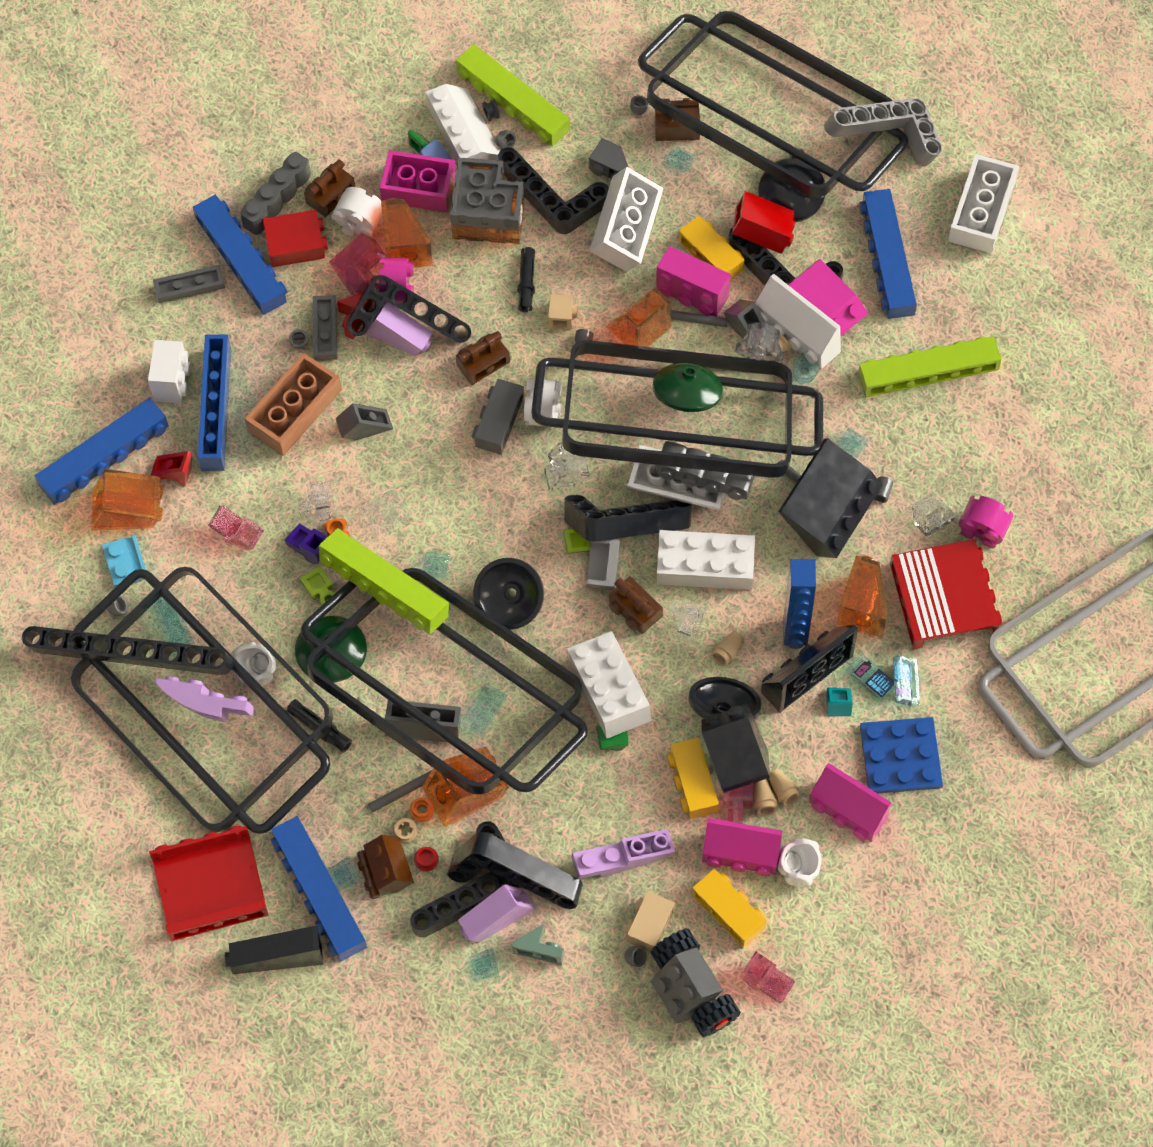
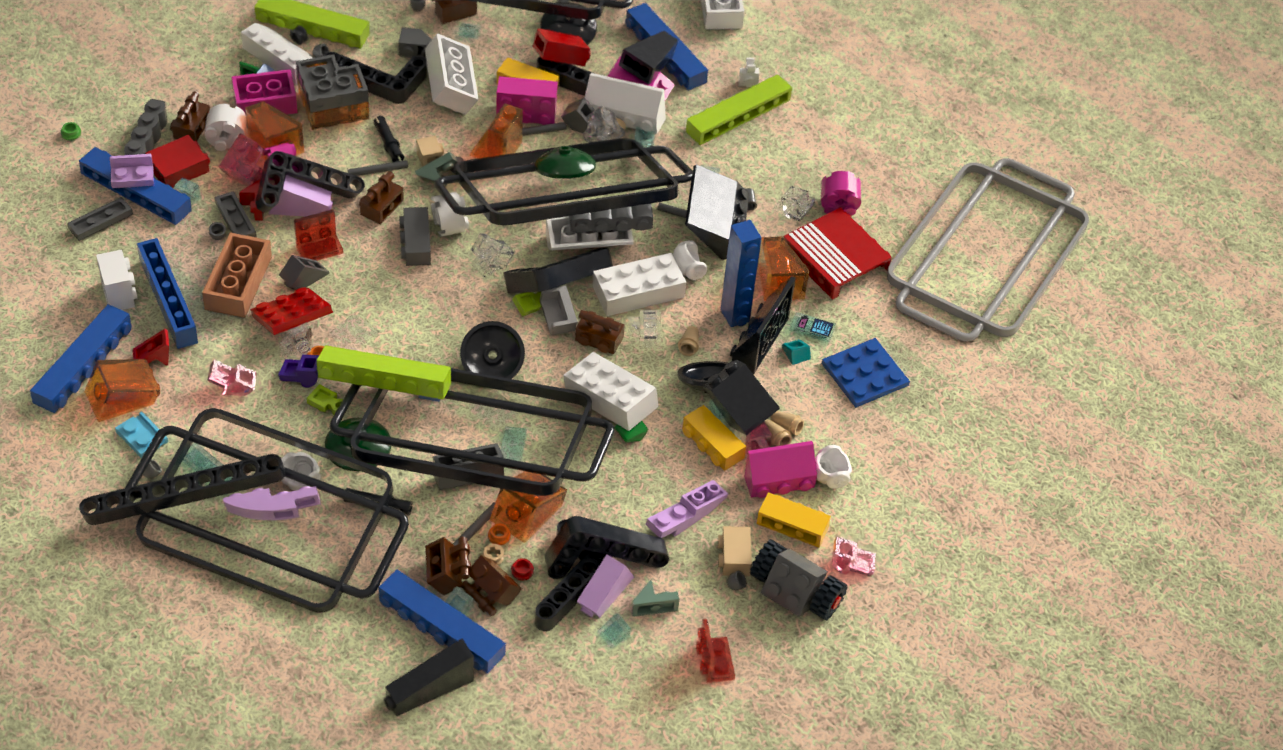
camera: 30 degrees left, 15 degrees down
(204, 161) = (70, 131): none -> bright green plate
(208, 883) = (339, 651): red panel -> none
(237, 241) = (131, 170): none -> lavender bracket
(289, 277) = (188, 188): none -> clear light blue slope
(327, 468) = (291, 310): none -> red plate
(349, 828) = (447, 564): none -> reddish brown brick
(394, 385) = (317, 236): none -> clear red bracket
(436, 564) = (417, 353): clear light blue tile -> none
(499, 312) = (379, 168): none -> dark grey bar
(554, 340) = (433, 170): none -> sand green slope
(570, 1034) = (715, 654): none -> clear red bracket
(773, 549) = (688, 260): none -> white hair
(848, 273) = (648, 56): none -> black slope
(849, 803) = (848, 411): dark pink slope -> none
(906, 680) = (841, 319): clear light blue tile -> none
(962, 325) = (750, 75): none -> white plate

